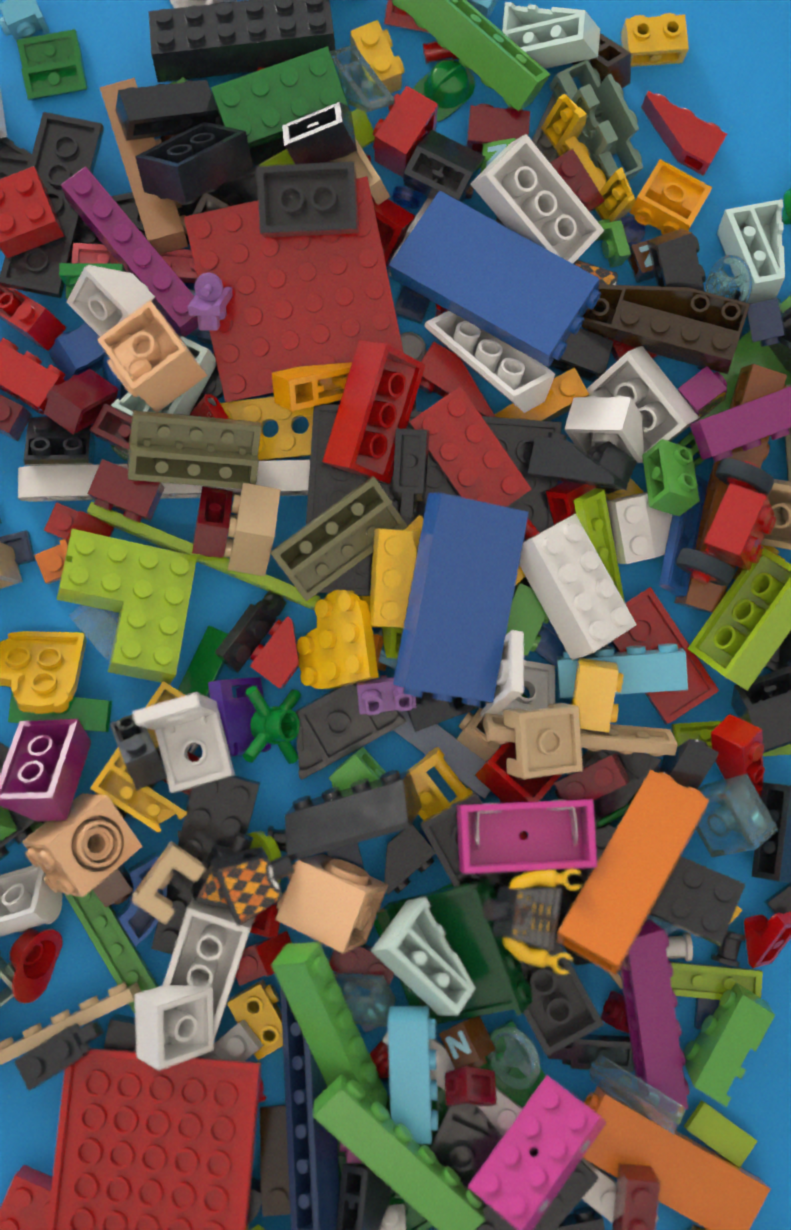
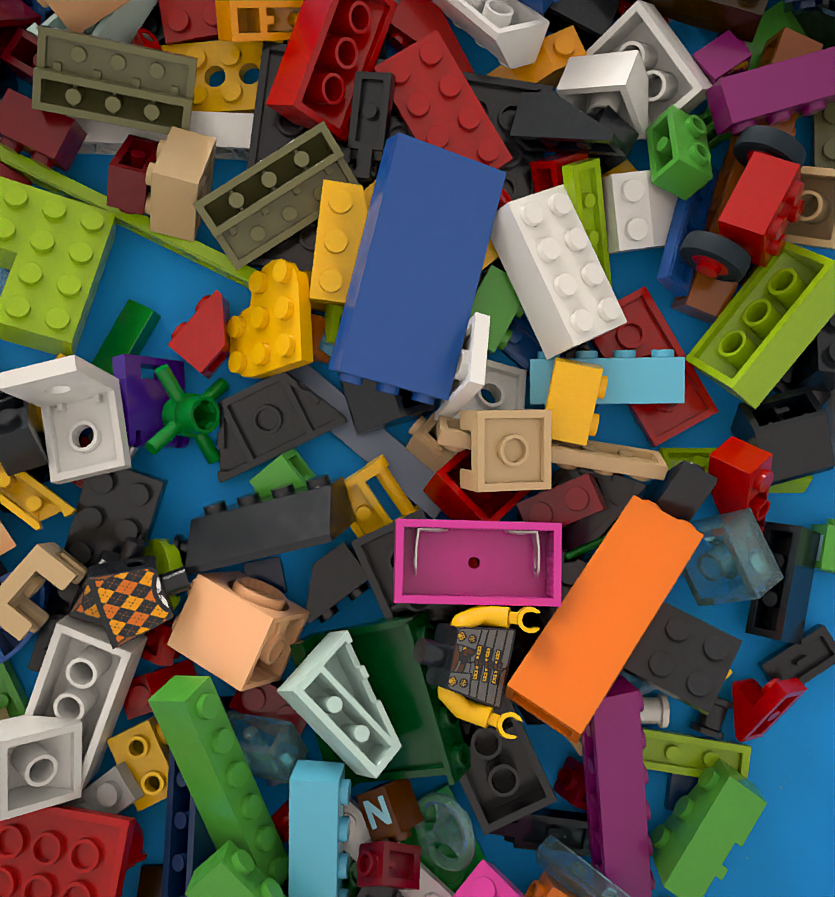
camera: 10 degrees right, 0 degrees up
(250, 631) = (172, 306): black hinge -> none
(382, 696) = (319, 388): medium lavender hips -> none

